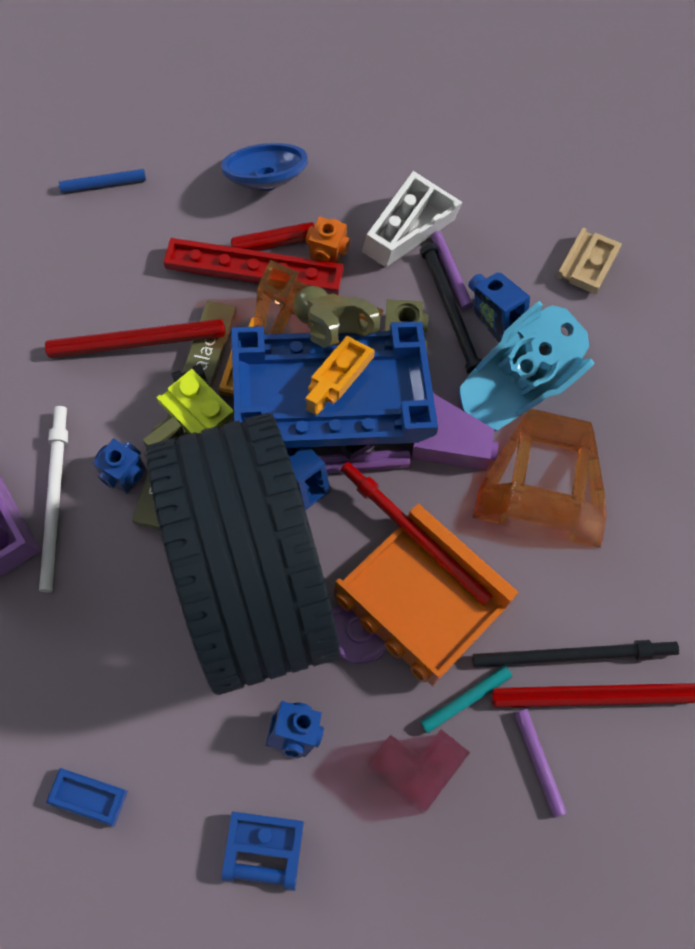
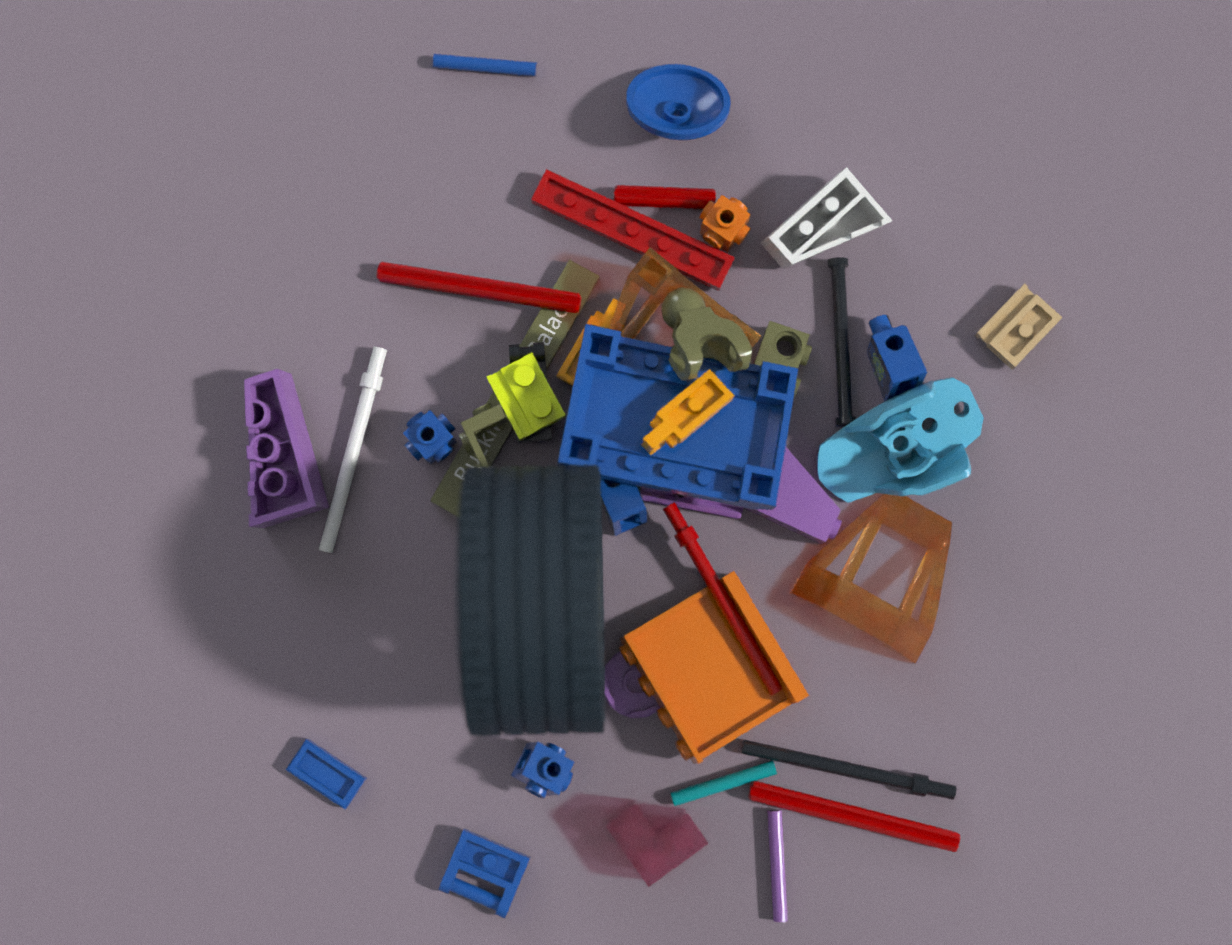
camera: 15 degrees right, 15 degrees up
(451, 270) = (857, 293): medium lavender bar -> none

